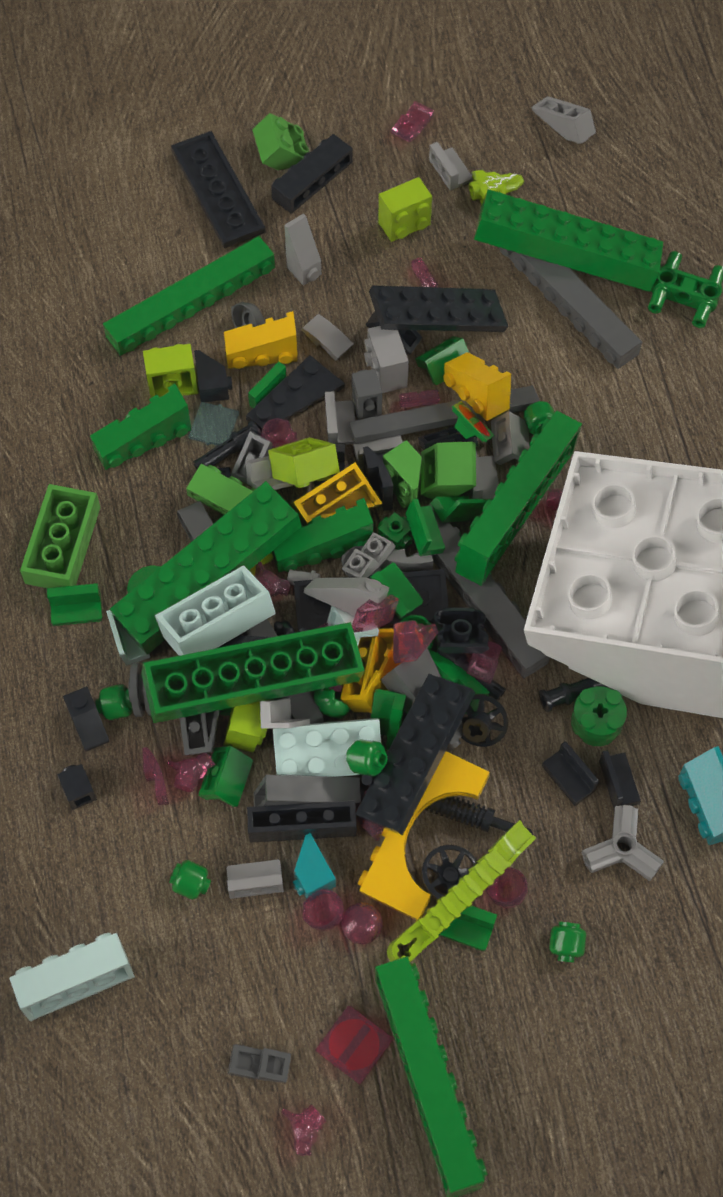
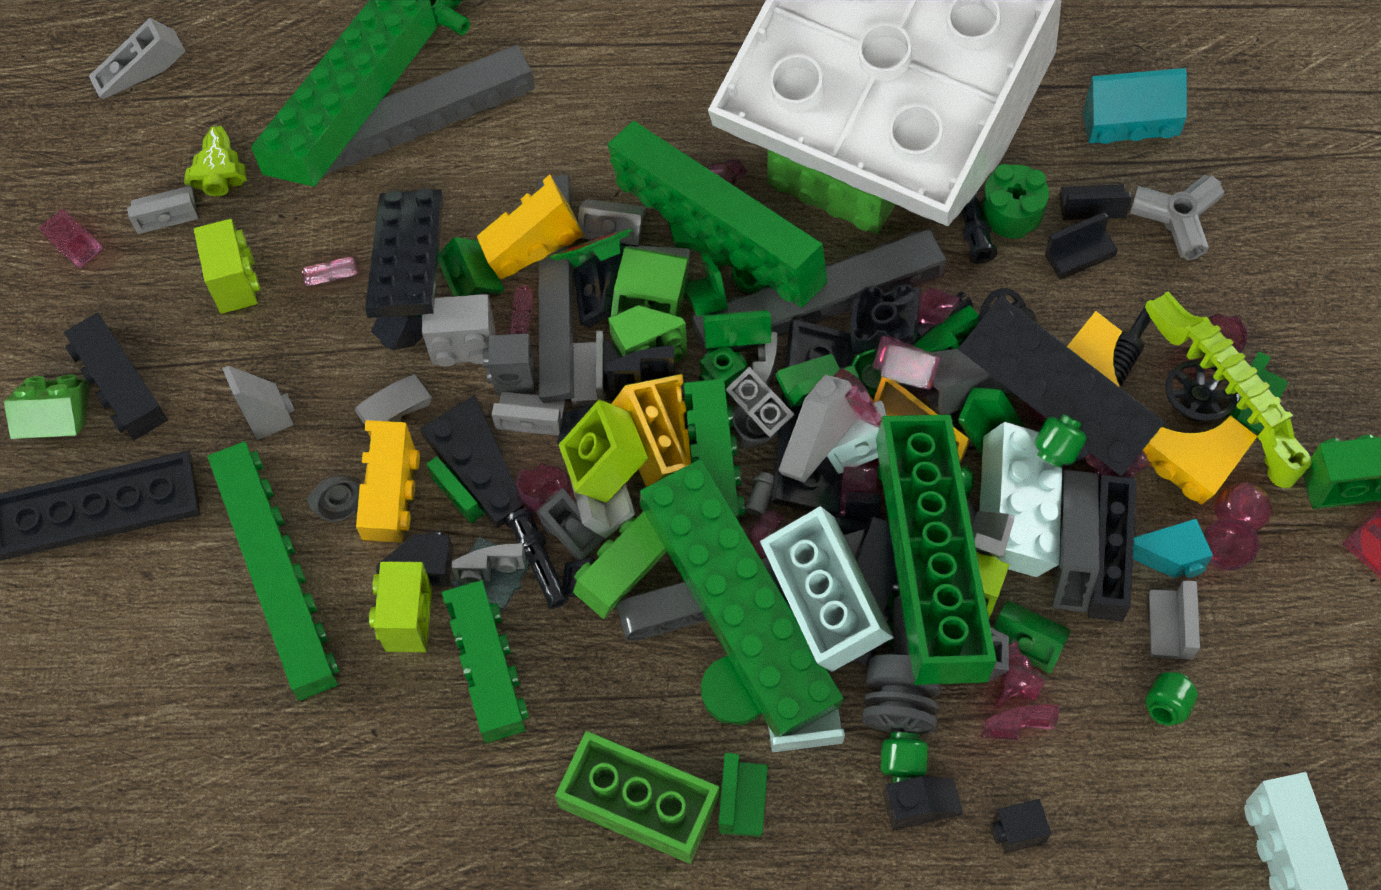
camera: 75 degrees left, 0 degrees up
(214, 416) = (478, 564): none -> light grey slope
(536, 415) = (592, 179): green head -> none
(567, 941) = (1290, 290): green head -> none

